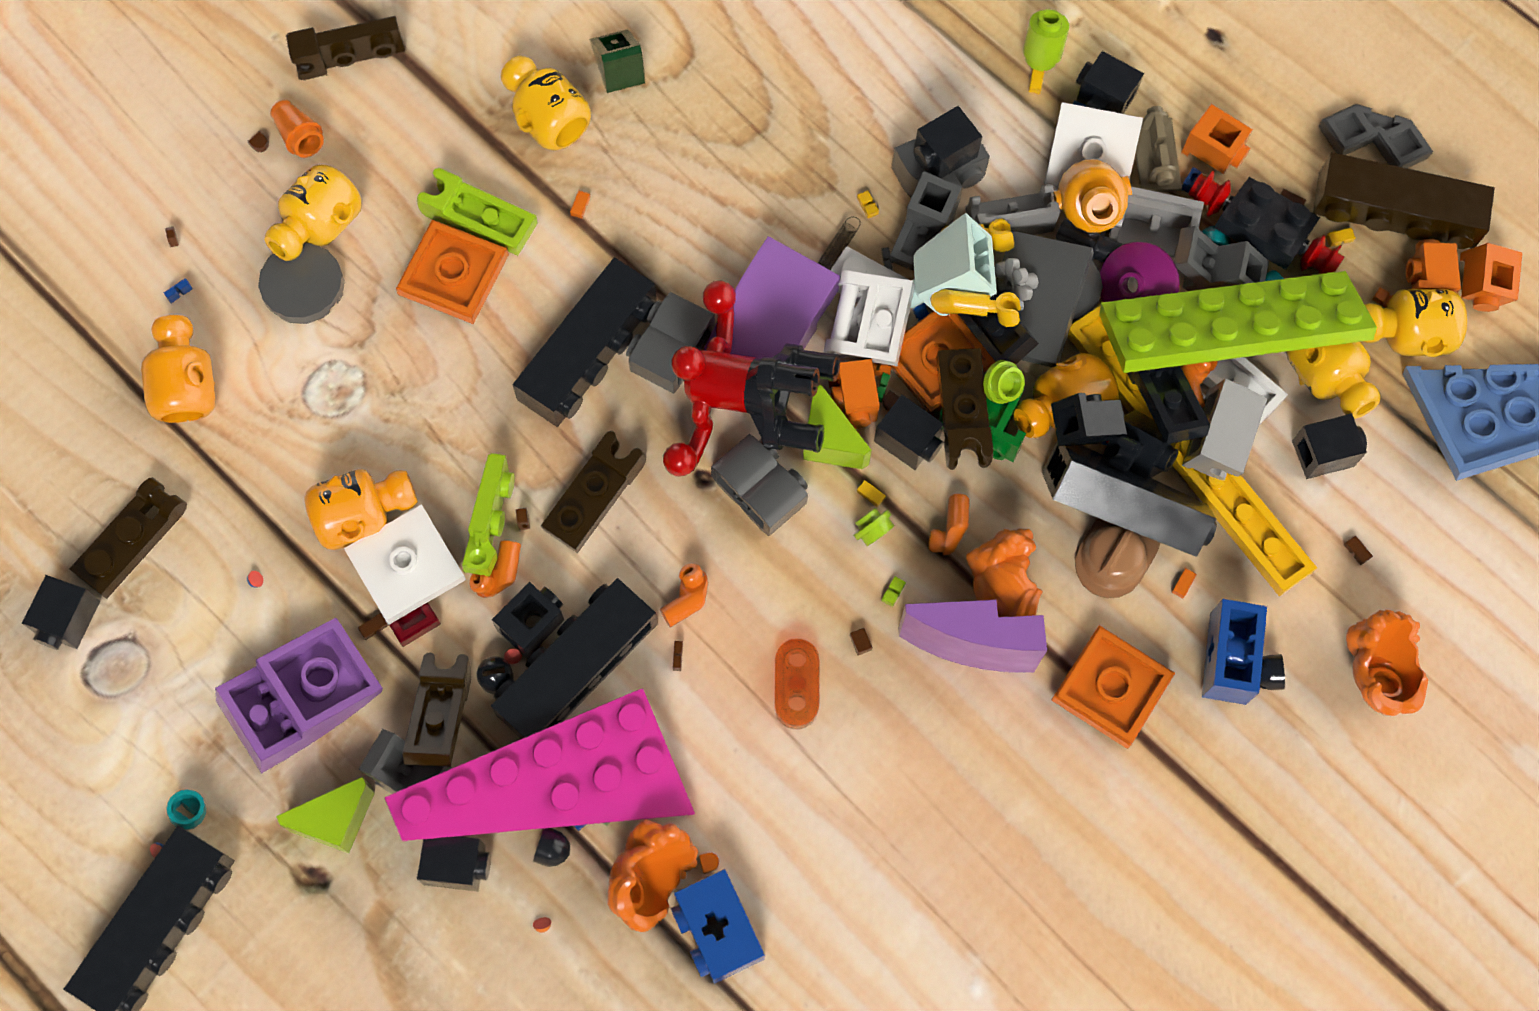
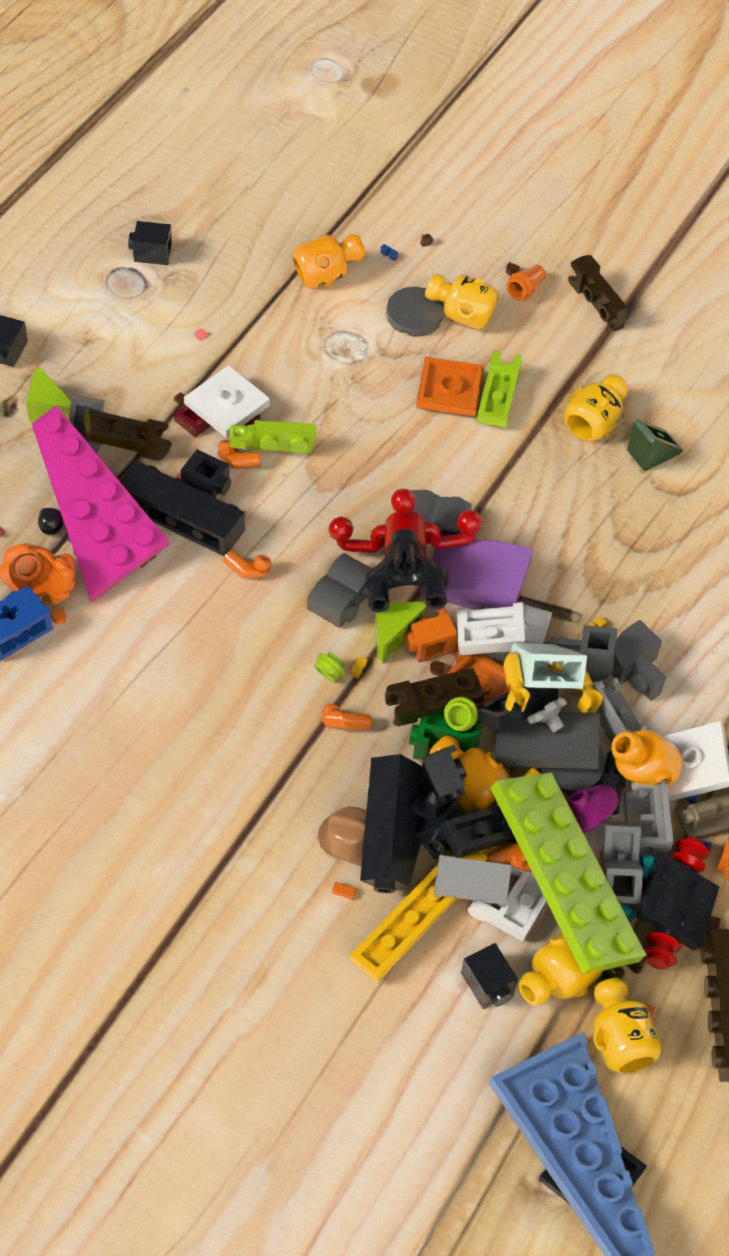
camera: 75 degrees right, 15 degrees down
(128, 538) = (211, 266): dark brown plate -> none
(190, 801) = (33, 327): teal hinge -> none
(297, 694) = (125, 367): medium lavender slope -> none
(355, 505) = (259, 364): light orange piece -> none
(454, 863) = (29, 469): black brick -> none
(492, 682) = (167, 462): black hinge -> none
(522, 518) = (279, 462): reddish brown piece -> none
(580, 203) = (526, 450): orange piece -> none
(586, 343) = (418, 466): black brick -> none
(593, 493) = (310, 496): dark brown plate -> none
(678, 651) = (199, 570): reddish brown piece -> none
(796, 682) = (199, 644): clear orange plate -> none
(860, 641) = (241, 679): reddish brown piece -> none
(883, 386) = (451, 659): green piece -> none
(893, 592) = (288, 695): lime piece -> none
(909, 433) = (411, 666): black brick -> none
(947, 143) = (649, 643): black brick -> none
(975, 635) = (257, 737): medium lavender slope -> none
(1001, 573) = (309, 744): orange hair -> none
(1113, 687) = (243, 846): orange plate -> none
(1234, 652) = (288, 919): blue brick -> none
(1272, 673) = (282, 959): black hinge -> none
(1337, 237) = (694, 973): yellow piece -> none
(1362, 554) = (408, 1018): reddish brown piece -> none
(1388, 662) = (306, 1037): orange hair -> none
(1434, 266) = (681, 1041): orange brick -> none
(1491, 276) = (704, 1085): orange brick -> none

